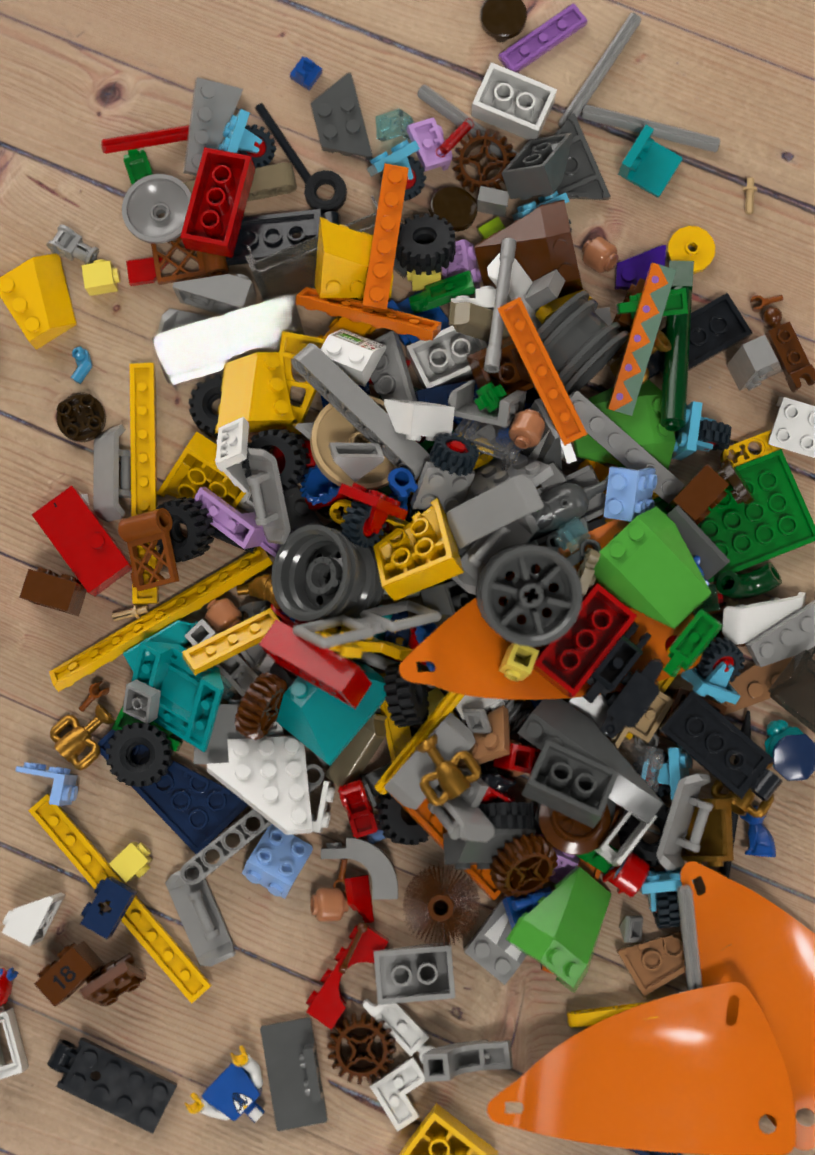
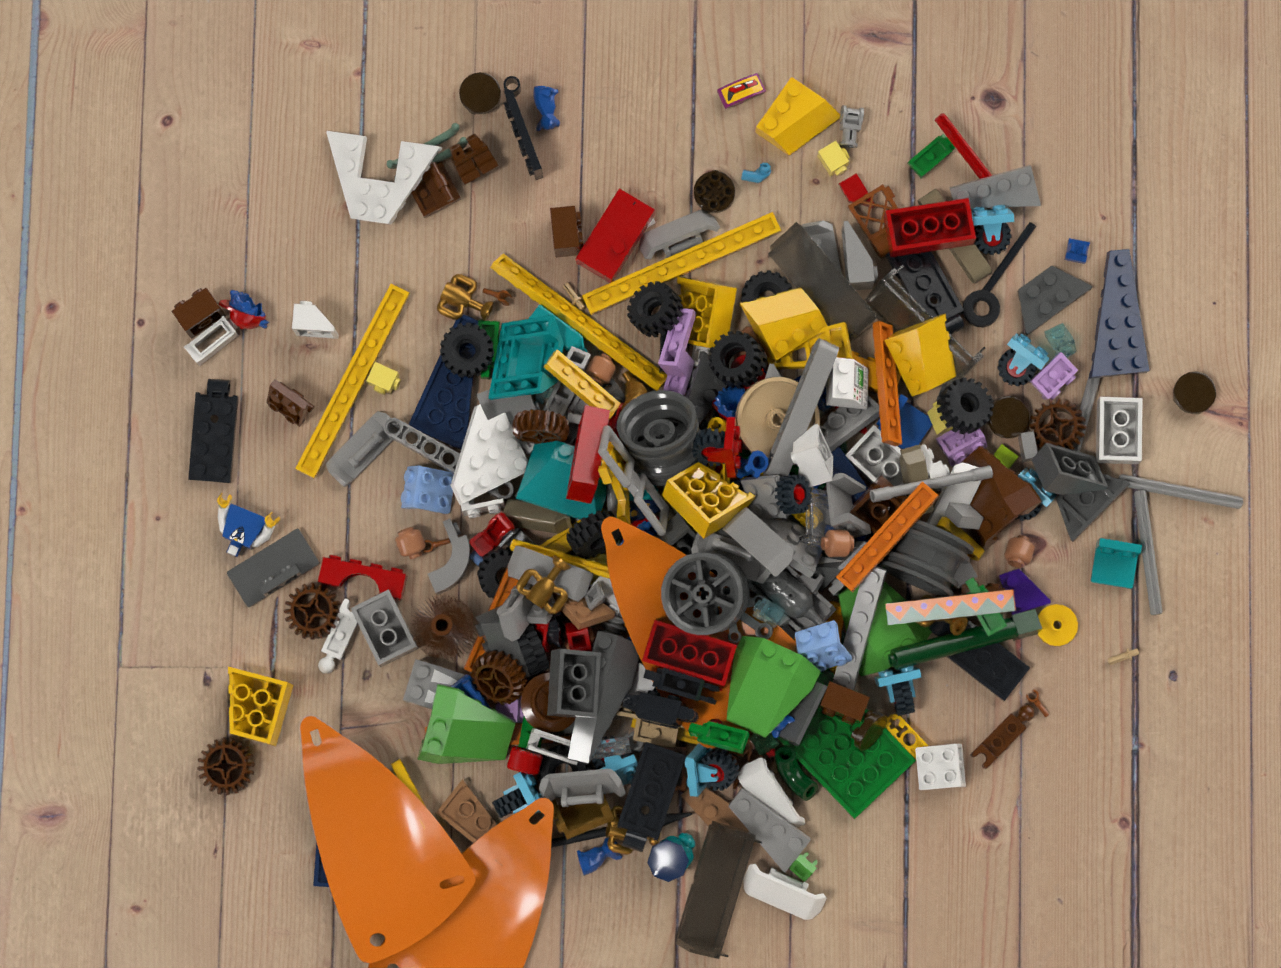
camera: 70 degrees right, 0 degrees up
(63, 786) = (419, 303): light blue bracket -> none
(67, 974) = (282, 366): reddish brown brick -> none
(120, 899) = (352, 382): dark blue brick -> none
(141, 701) = (508, 334): light grey piece -> none
(145, 529) = (644, 284): dark orange piece -> none
(149, 199) = (911, 169): light grey dish -> none
(232, 451) = (728, 323): white bracket -> none
(268, 496) = (703, 365): light grey piece -> none
(356, 458) = (760, 420): light grey slope -> none
(359, 896) = (425, 563): red tile -> none
(362, 927) = (403, 574): reddish brown hinge -> none
(385, 237) = (953, 371): orange plate -> none
(393, 1090) = (288, 648): white plate -> none
(403, 61) = (1119, 329): none -> wing
(442, 292) = (932, 437): green hinge -> none
(455, 137) = (1066, 394): red piece -> none
(463, 1057) = (335, 692): light grey arch -> none
(489, 397) = (852, 504): green gear -> none
(518, 662) = (650, 608): light yellow brick -> none
(543, 39) = (1189, 433): medium lavender tile -> none
(586, 570) = (739, 635): dark tan plate -> none
(632, 928) = (484, 785): light grey slope -> none
(689, 937) = (494, 826): light grey axle -> none
(753, 364) = (978, 713): light grey wedge -> none

